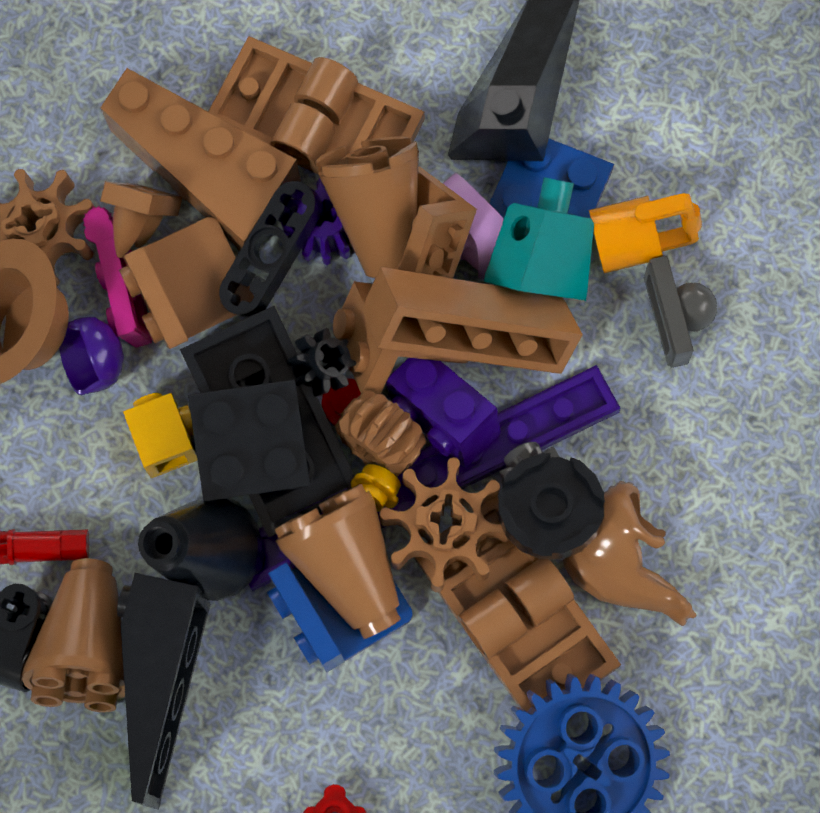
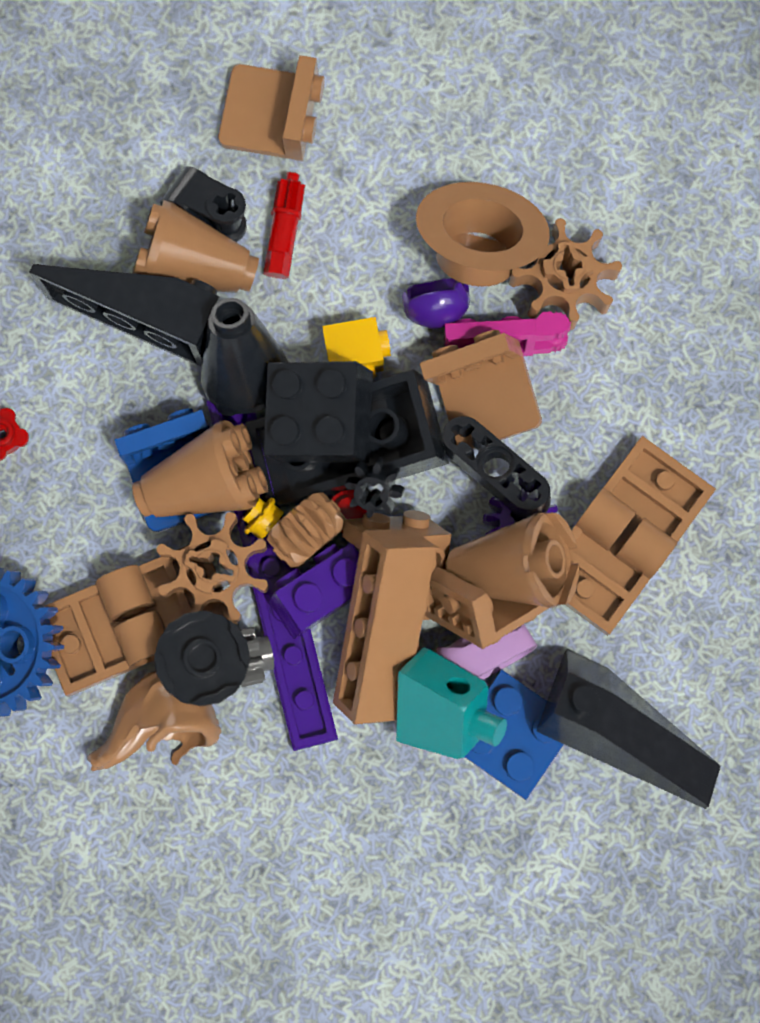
camera: 100 degrees right, 5 degrees up
(137, 212) = (560, 359): medium nougat tile -> none
(198, 154) = (600, 425): medium nougat wedge -> none
(628, 230) = (450, 801): light orange piece -> none
(677, 310) = (371, 833): dark grey tile -> none

